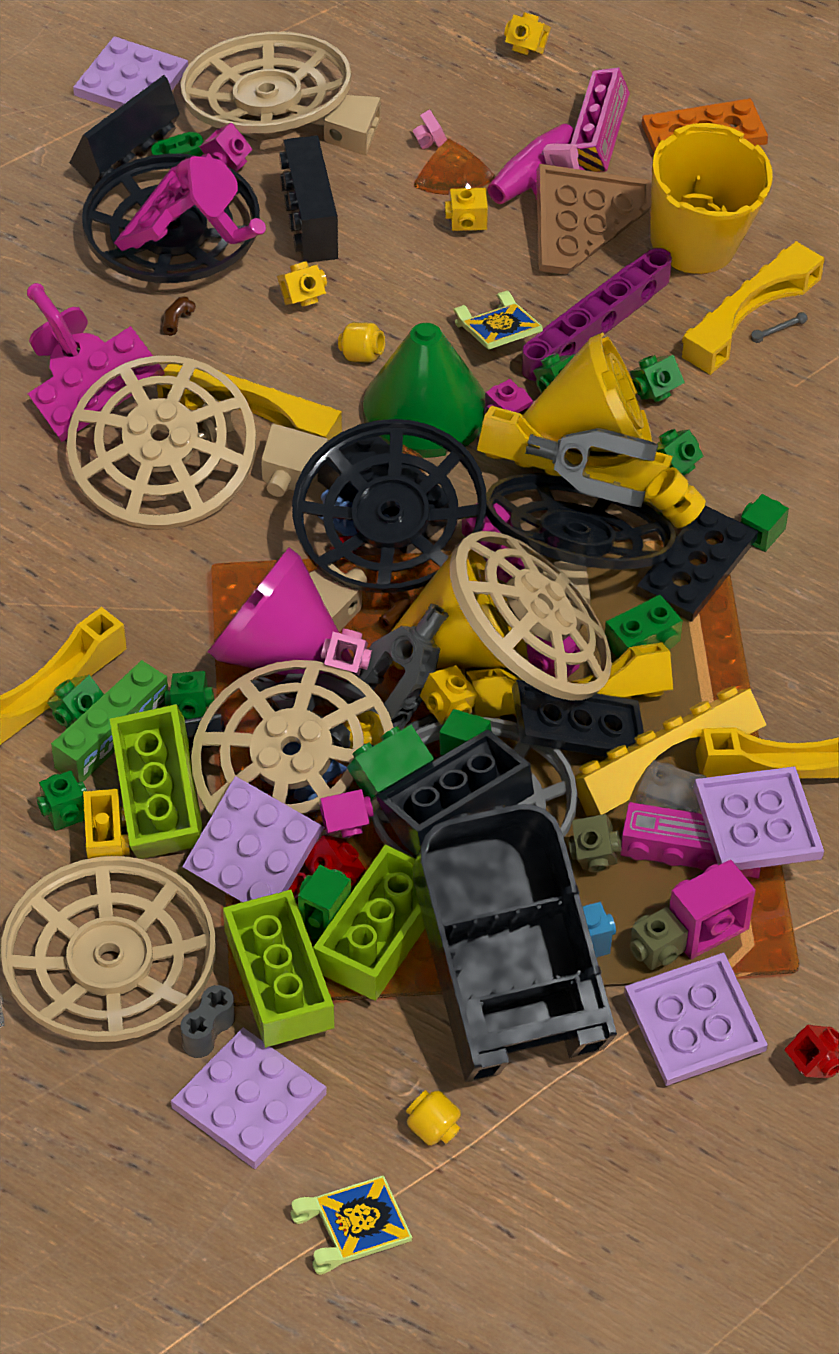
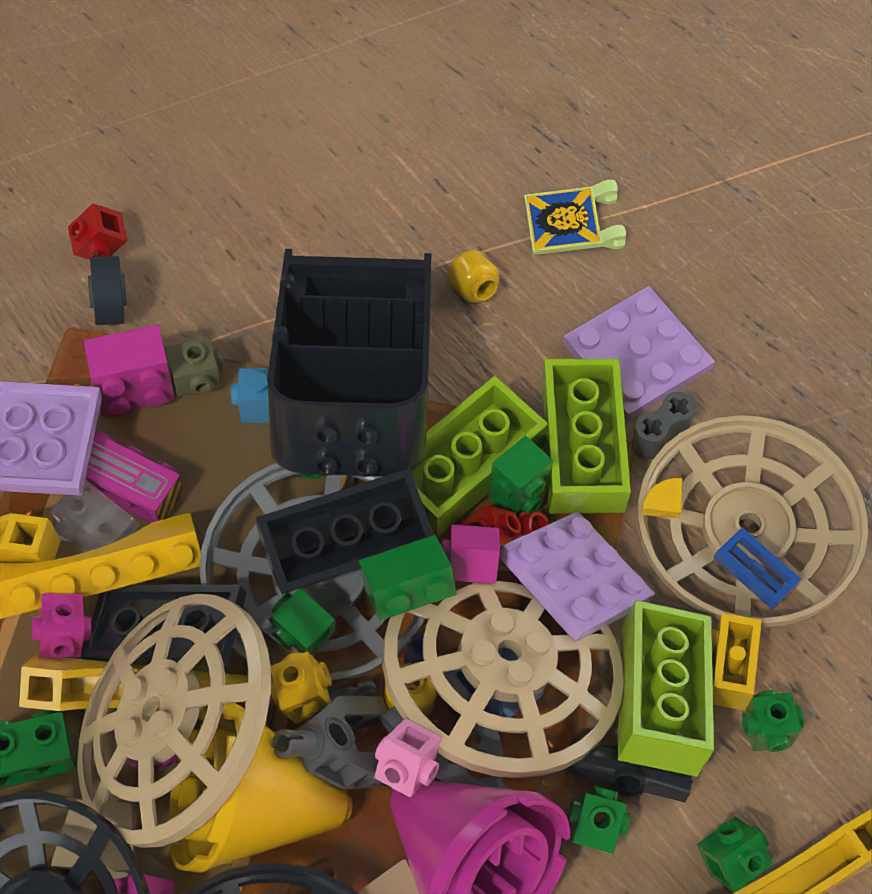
camera: 165 degrees left, 10 degrees up
(89, 738) = (697, 815): bright green brick -> none
(94, 899) = (747, 578): none -> blue tile
(191, 929) = (664, 499): none -> yellow tile
(595, 843) = (209, 483): olive brick -> none
(659, 701) = (61, 625): none -> dark pink brick
(695, 1019) = (194, 297): lavender plate -> none
(776, 994) = (107, 290): none -> black wheel

